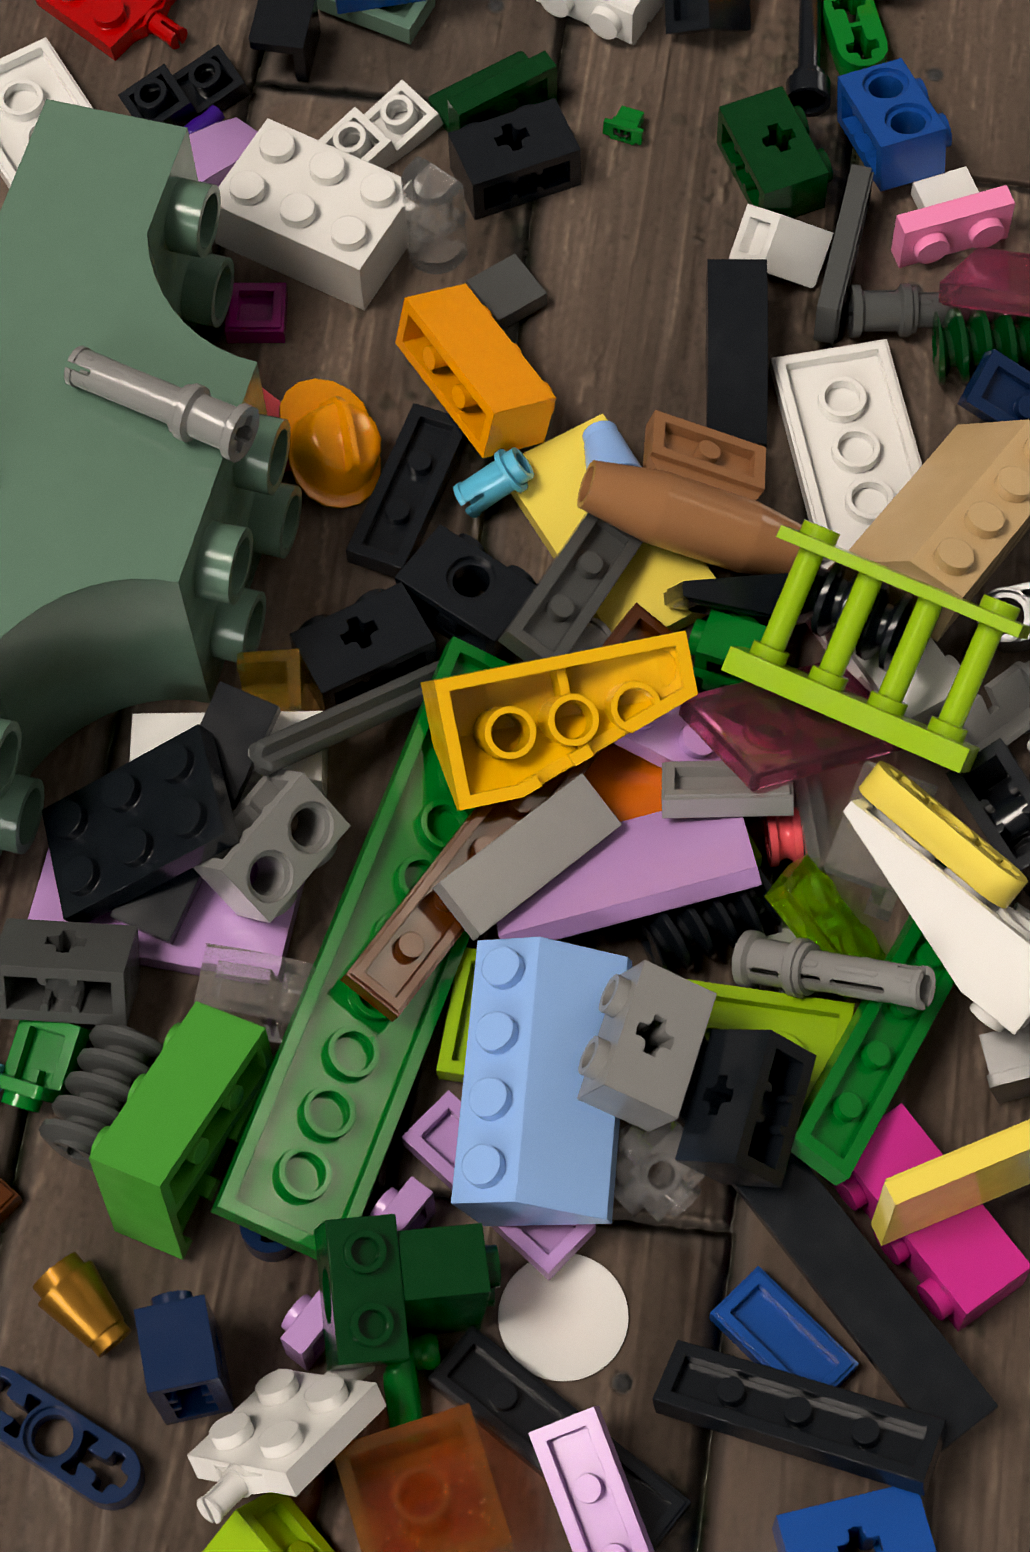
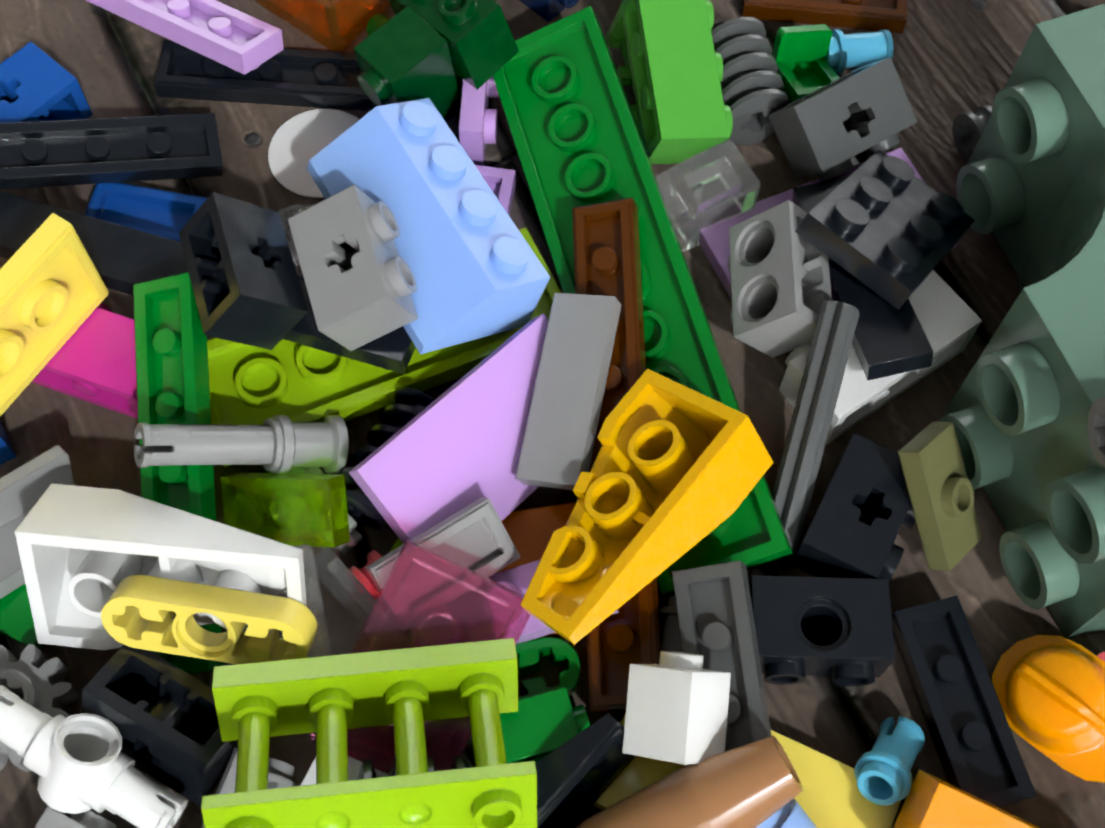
camera: 140 degrees right, 0 degrees up
(274, 677) = (890, 421): clear yellow panel -> none
(297, 610) = (940, 495): none -> olive plate
(633, 571) = (676, 709): none -> white brick

